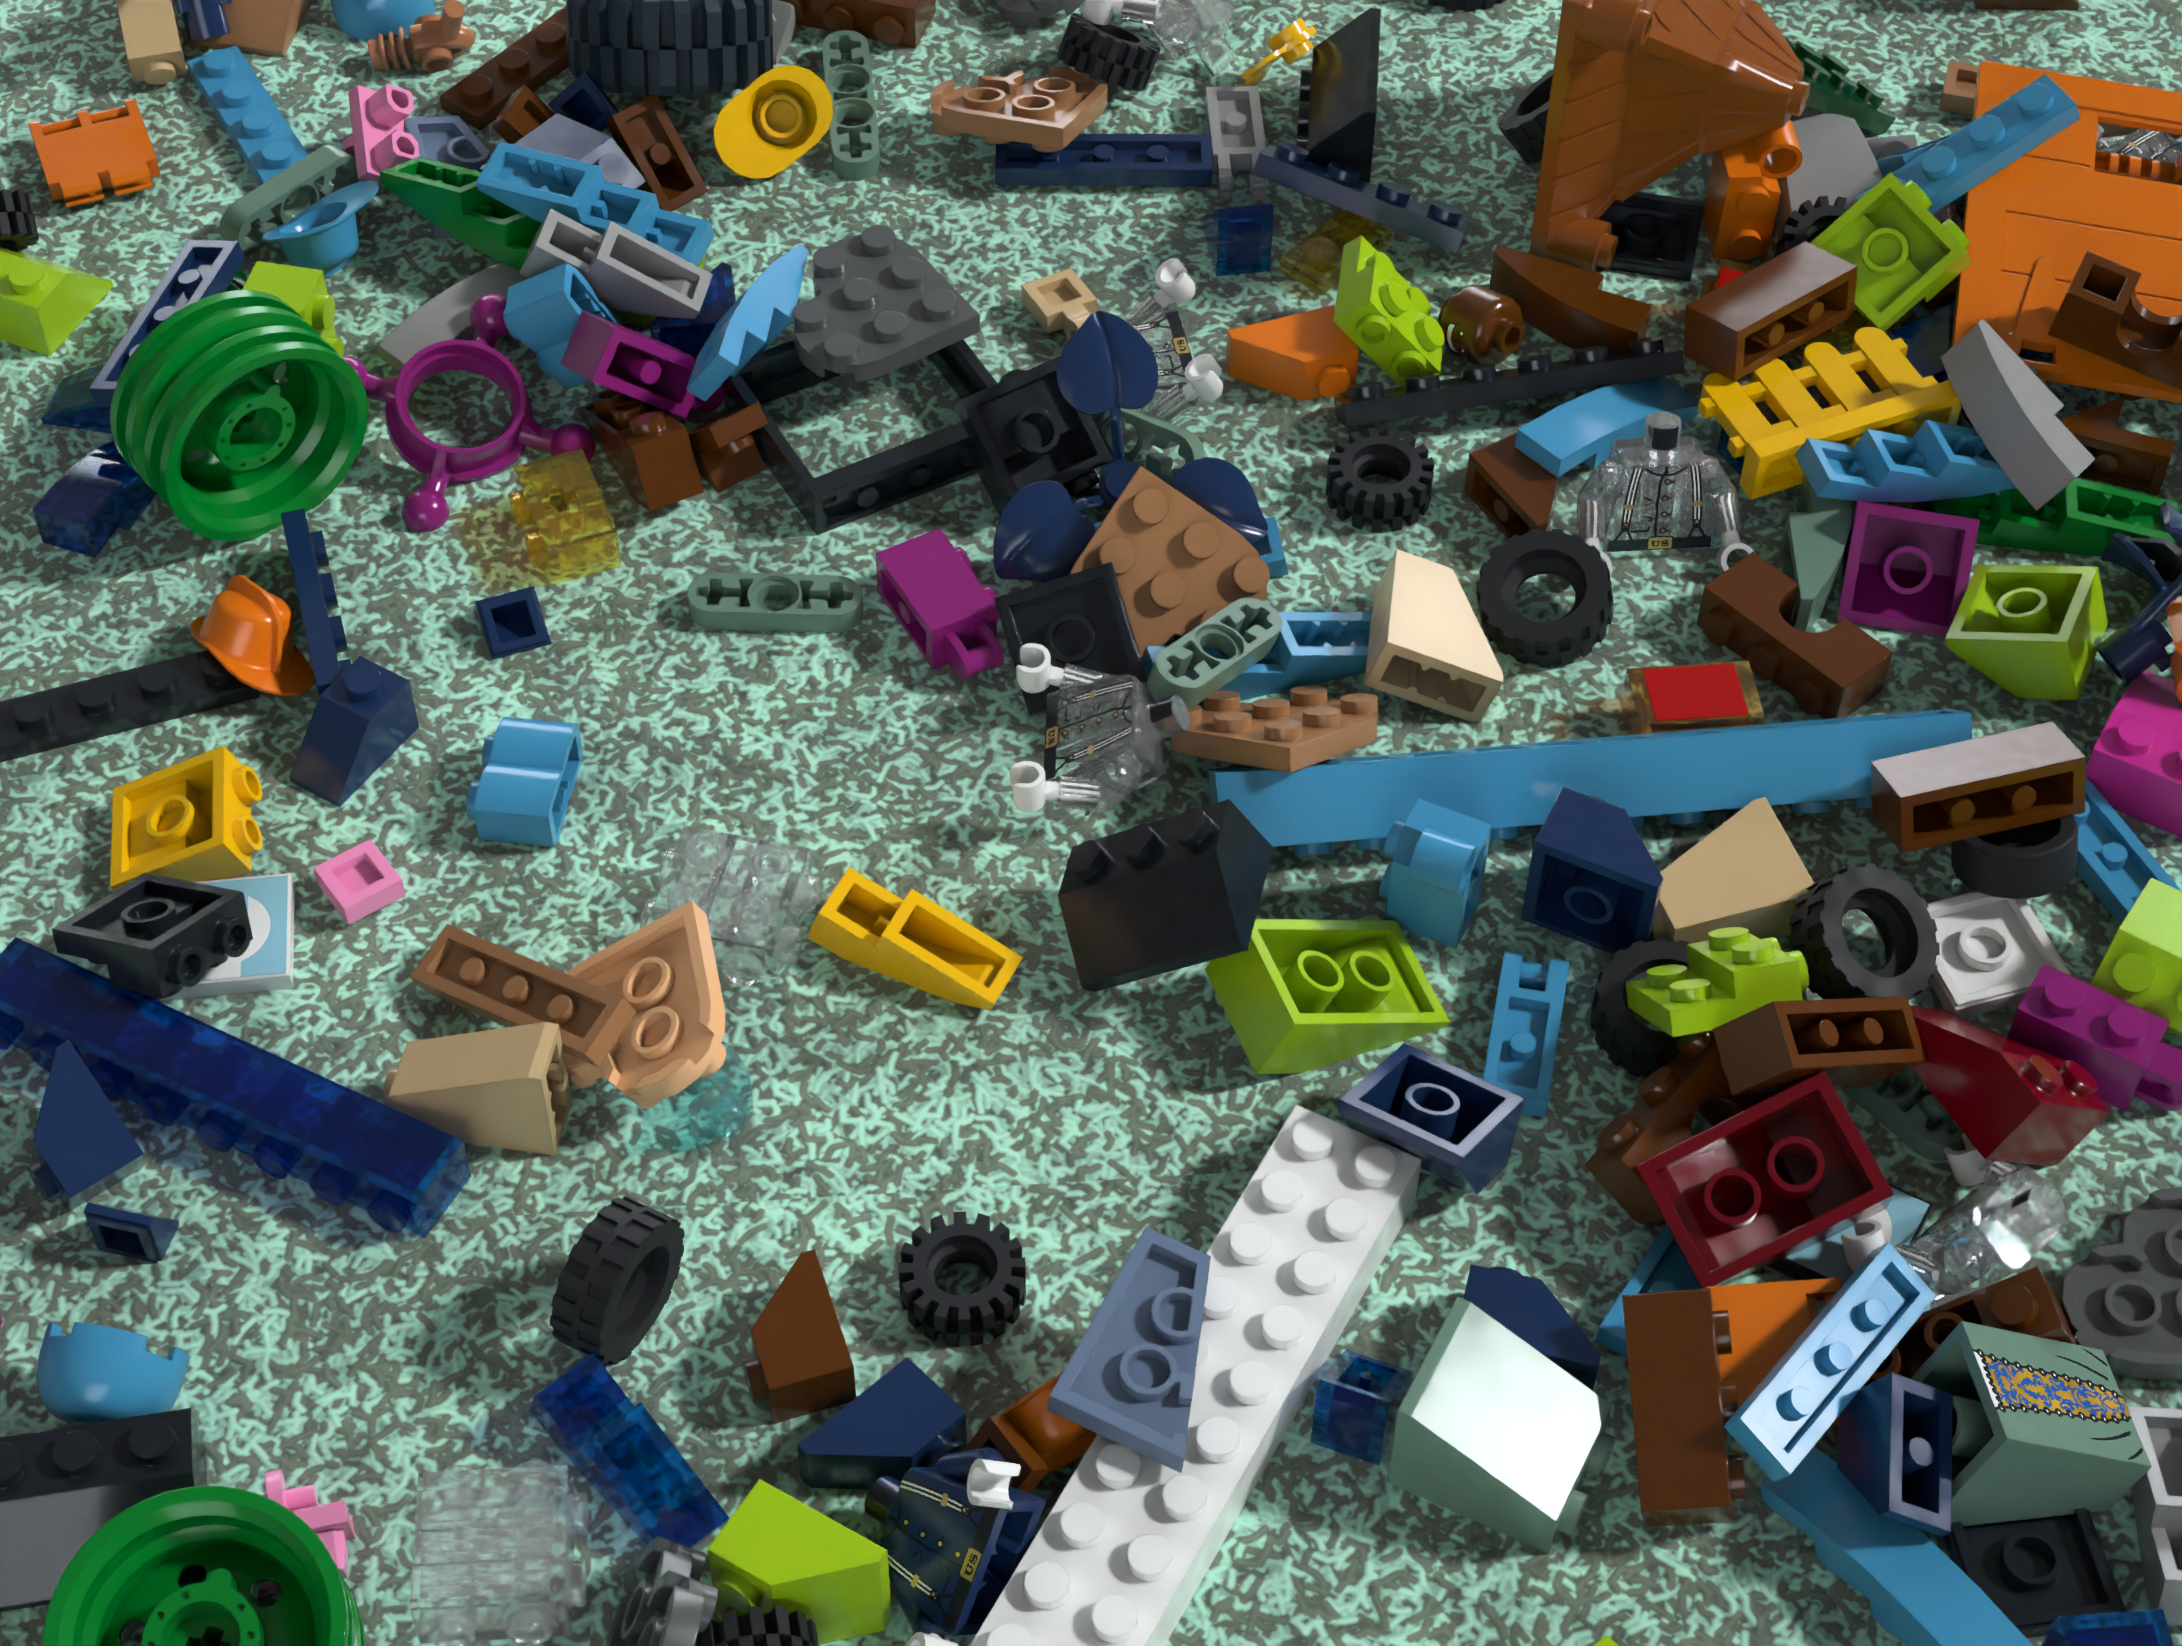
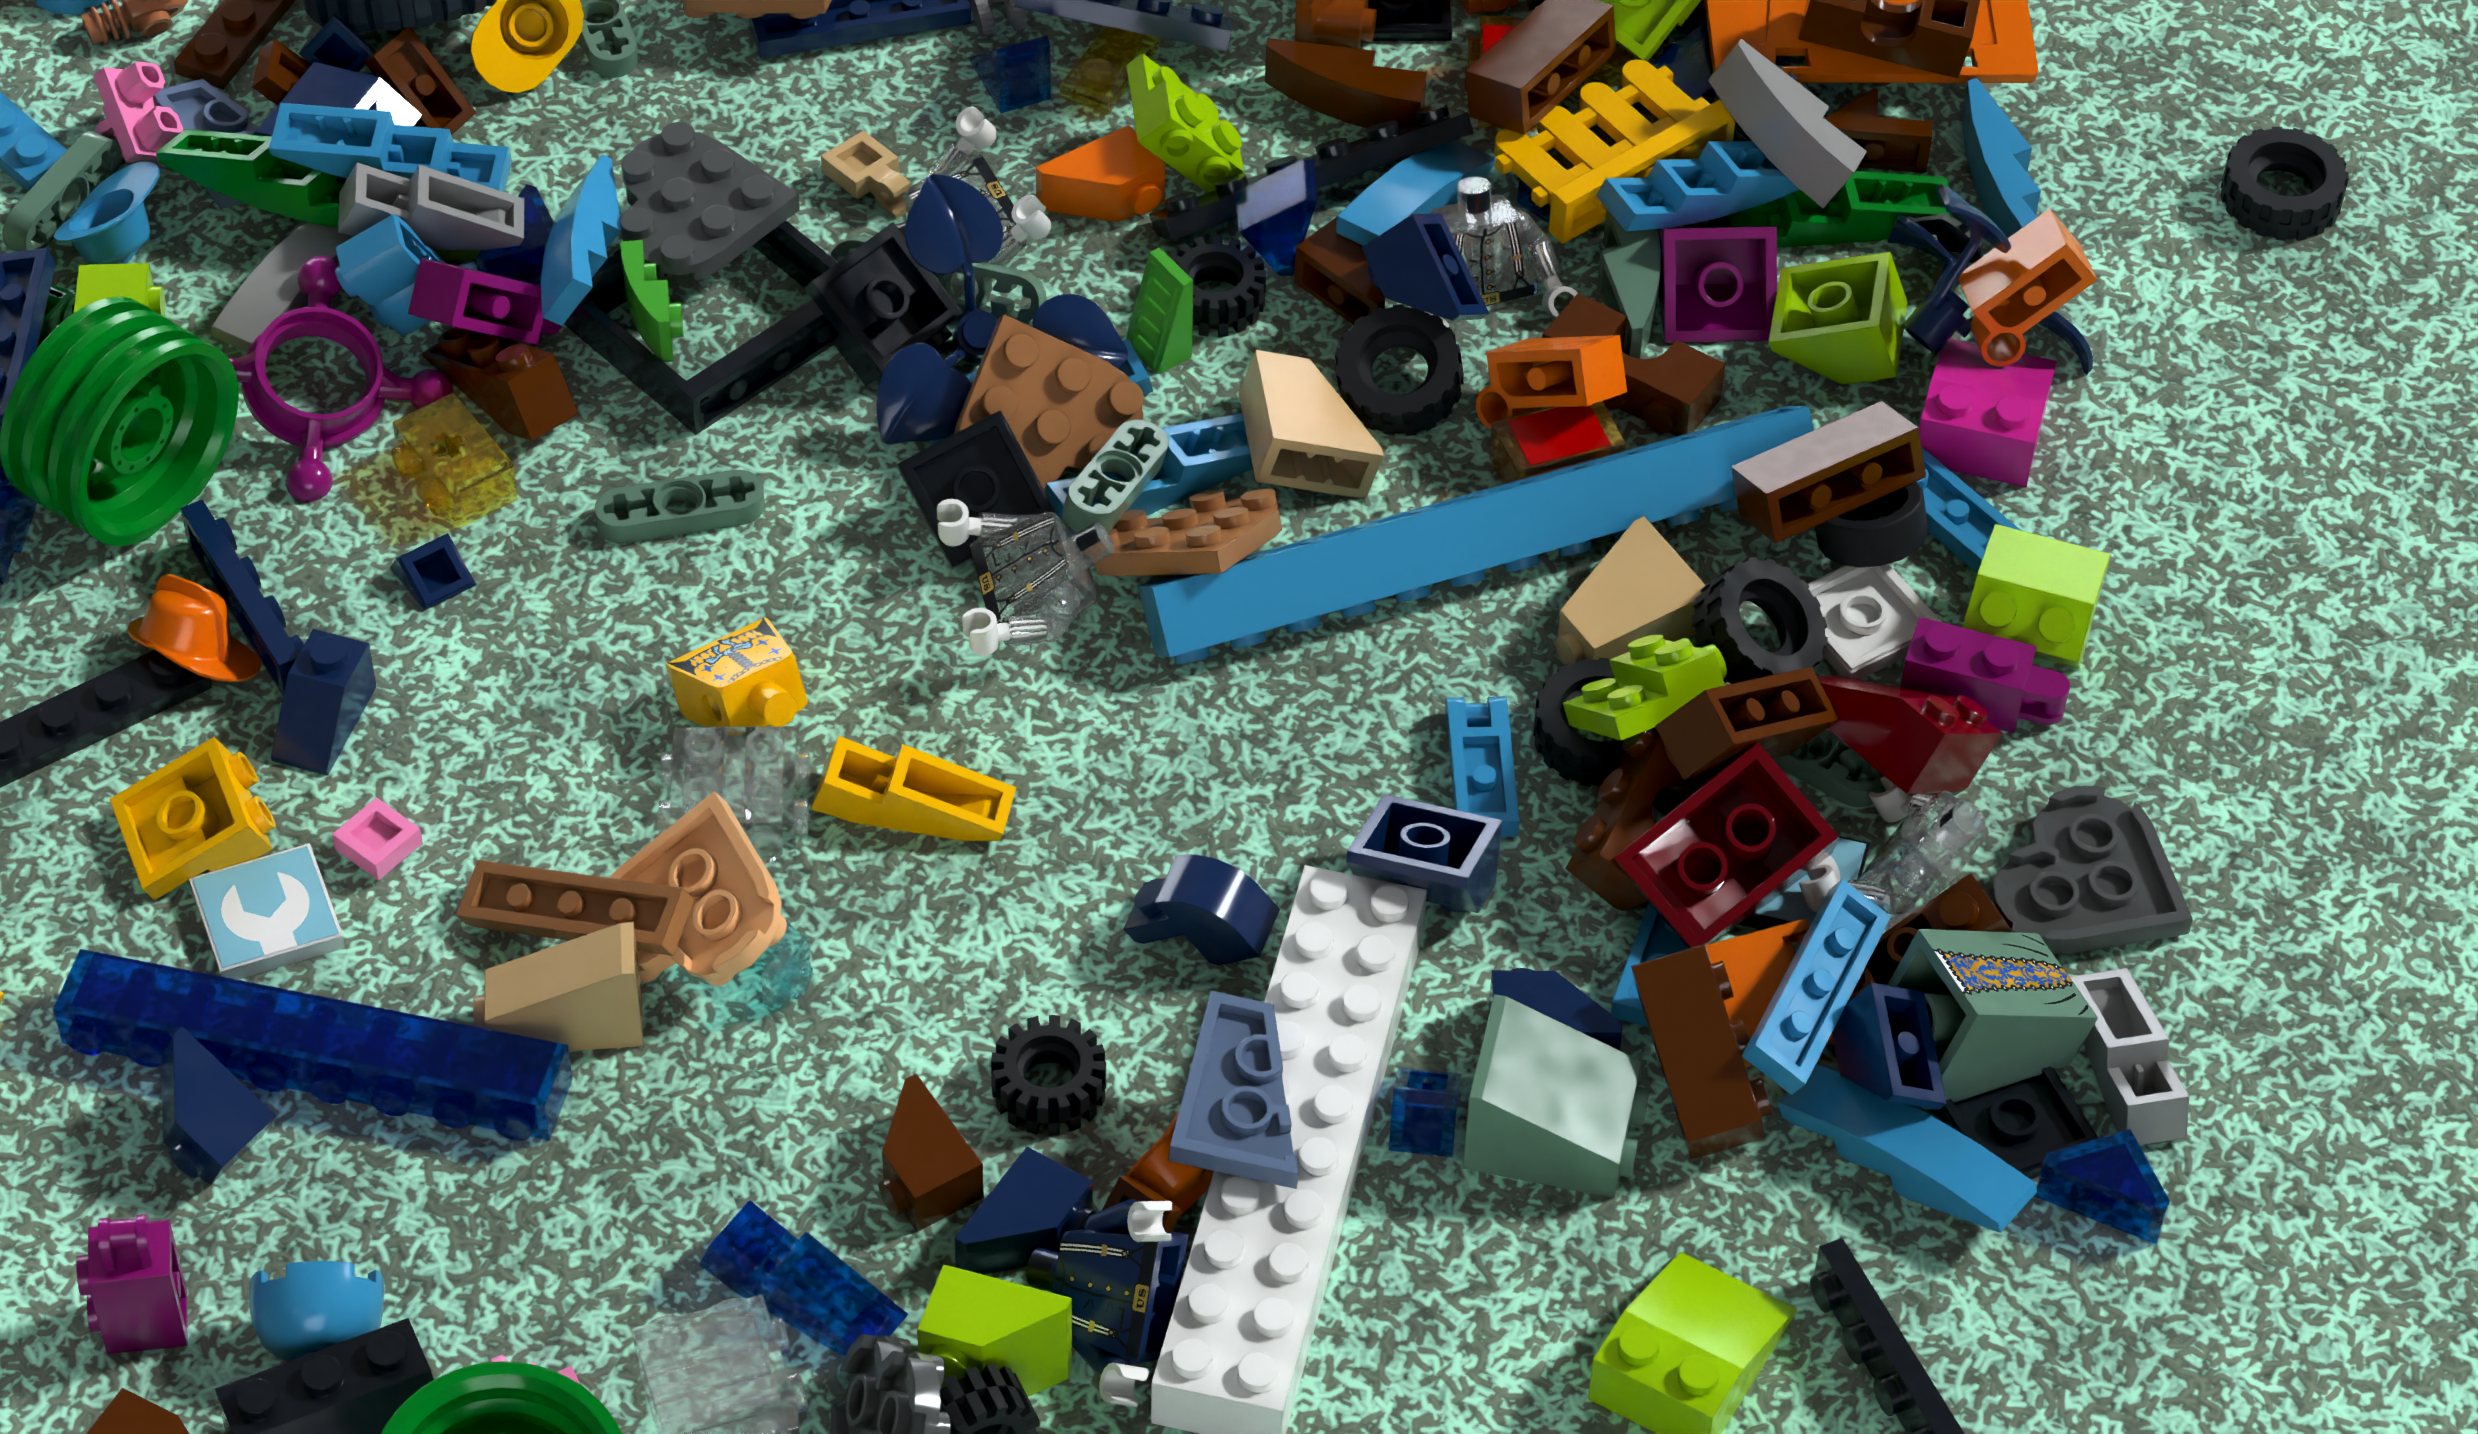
camera: 15 degrees left, 0 degrees up
(130, 1232) = (280, 1188): dark blue slope -> none
(158, 933) = (217, 918): black plate -> none
(525, 781) = (502, 717): dark azure brick -> none
(617, 1280) = (750, 1134): black tyre -> none
(726, 448) = (588, 362): reddish brown slope -> none
(770, 789) = (739, 680): none -> yellow torso
(801, 406) = (649, 302): none -> bright green slope
(941, 603) = (840, 479): magenta brick -> none
(1163, 895) = (1134, 706): black slope -> none
(1184, 1127) = (1209, 904): none -> dark blue brick
(1314, 498) = (1162, 314): none -> bright green slope
(1323, 992) = (1292, 764): lime slope -> none
(1435, 871) = (1369, 639): dark azure hinge -> none
(1457, 416) = (1278, 213): none -> clear blue slope
(1481, 325) = (1271, 118): reddish brown head -> none
(1592, 875) = (1511, 616): dark blue slope -> none
(1593, 497) = (1424, 269): none -> dark blue slope
(1701, 630) = (1551, 375): none -> orange hinge

